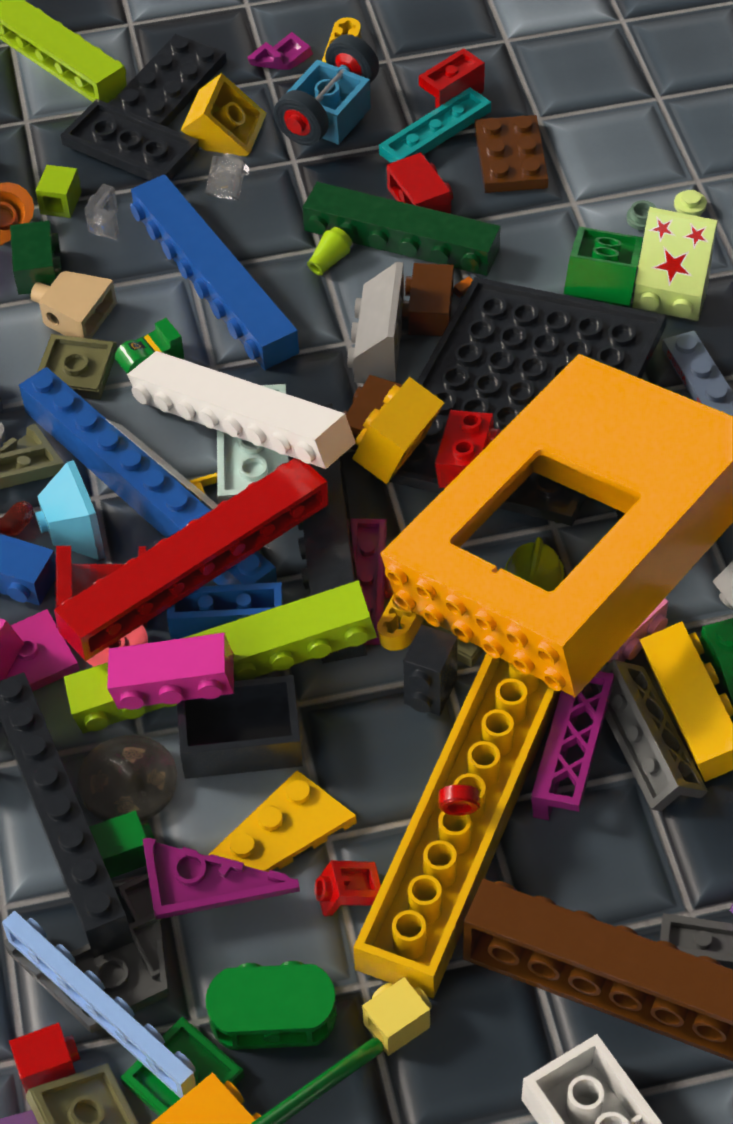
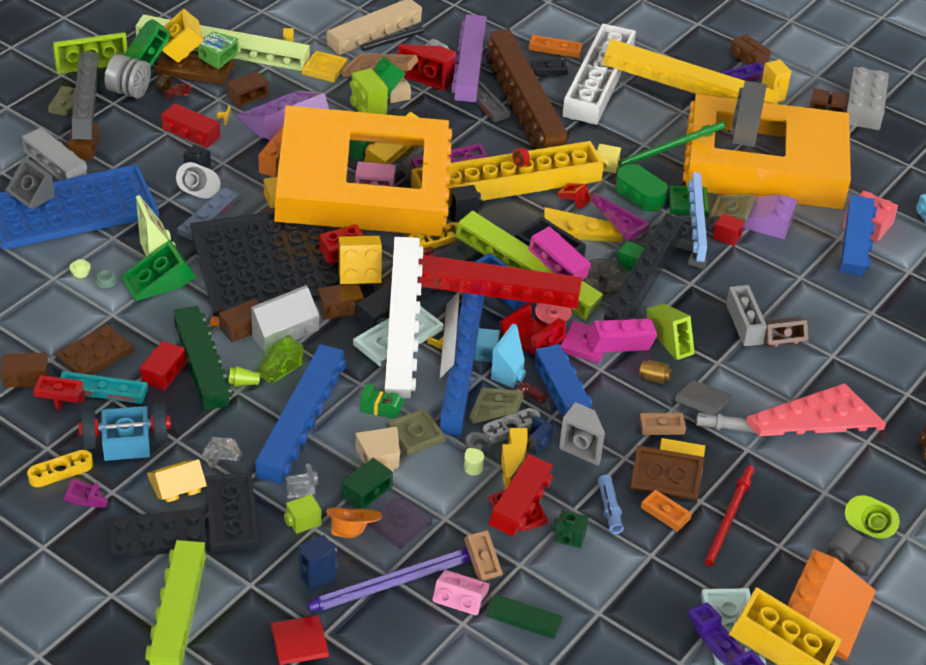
camera: 135 degrees left, 10 degrees down
(132, 521) = (486, 341): none -> medium azure brick
(322, 305) = (281, 359): none -> clear neon green slope
(525, 77) = (23, 369): none -> reddish brown brick

